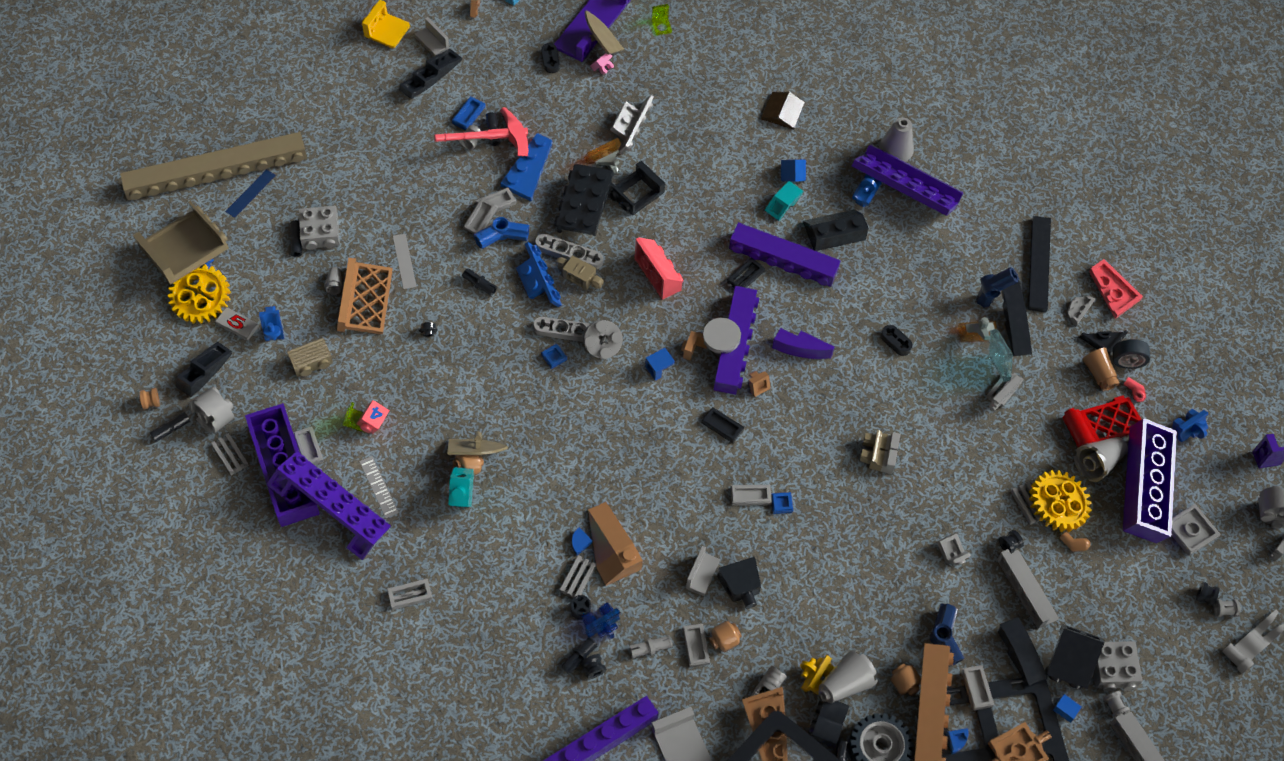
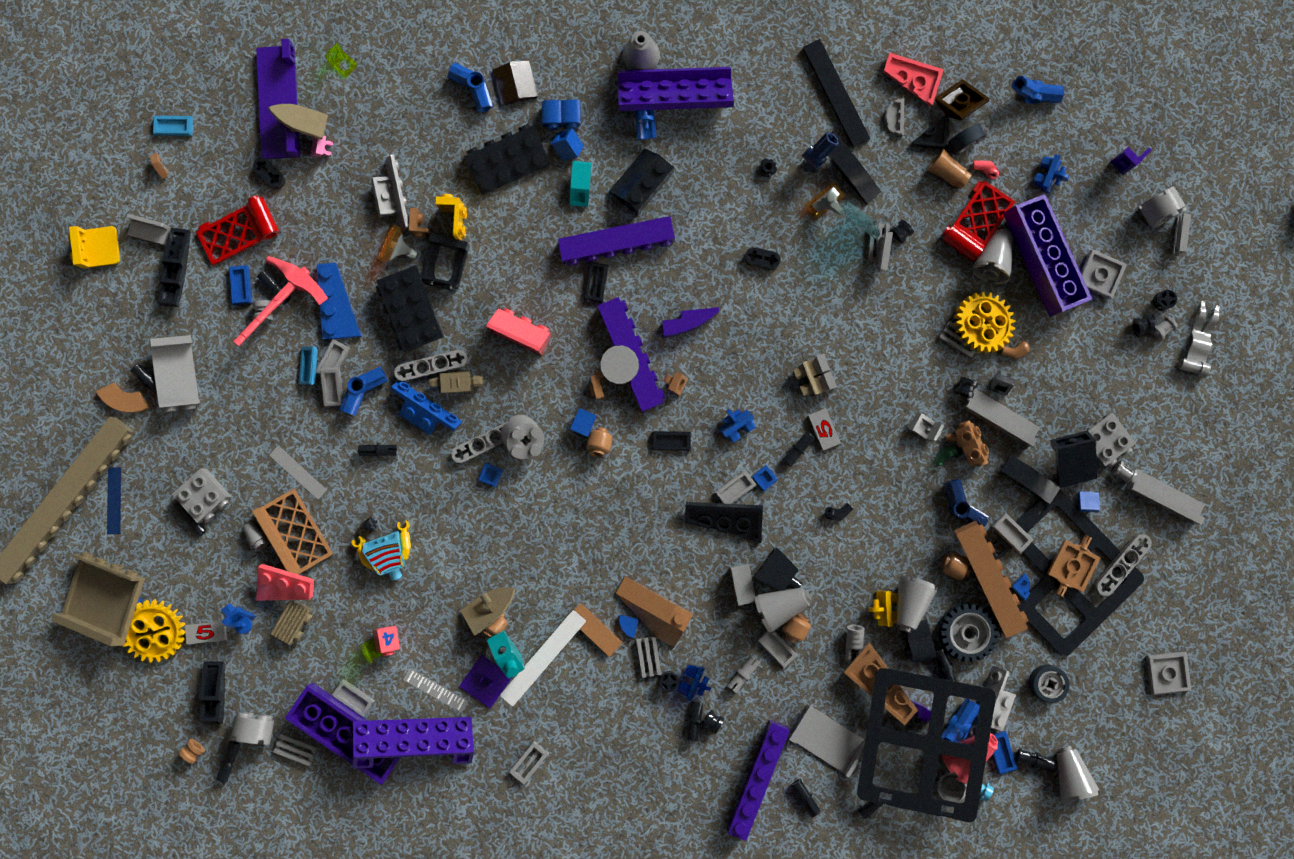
camera: 30 degrees left, 25 degrees up
(317, 133) = (121, 400): none -> medium nougat tile
(326, 322) = (282, 585): none -> coral wing
(347, 130) = (145, 377): none -> black pin
(372, 135) = (174, 373): none -> light grey panel
(425, 507) = (485, 681): none -> dark purple piece
(426, 354) = (386, 553): none -> torso
(474, 193) = (308, 365): none -> dark azure tile
(487, 519) = (543, 658): none -> white sticker
(518, 81) = (257, 216): none -> red piece
(548, 526) = (597, 631): none -> medium nougat tile
(635, 150) = (415, 222): none -> medium nougat bracket
(661, 385) = (599, 442): none -> medium nougat head
(671, 154) = (448, 203): none -> yellow bracket
(724, 604) = (781, 606): none -> light grey cone
(733, 515) = (730, 518): none -> black wing
(738, 152) = (506, 159): none -> black bracket
(751, 88) = (466, 77): none -> blue piece
(778, 445) = (734, 422): none -> blue hips
(804, 147) = (561, 114): none -> blue brick
(827, 498) = (798, 449): none -> black axle
(827, 572) = (838, 514): none -> black arm
(861, 498) = (824, 429): none -> light grey tile
(945, 283) = (767, 172): none -> black plate
(958, 583) = (946, 452): none -> clear green arm
(986, 587) = (969, 439): none -> medium nougat brick
(1030, 389) = (902, 231): none -> black wheel
(1045, 559) = (1001, 383): none -> black tile
(1143, 325) = (961, 100): none -> dark brown slope
(1214, 356) = (1036, 92): none -> blue piece
(1245, 585) = (1170, 299): none -> black wheel

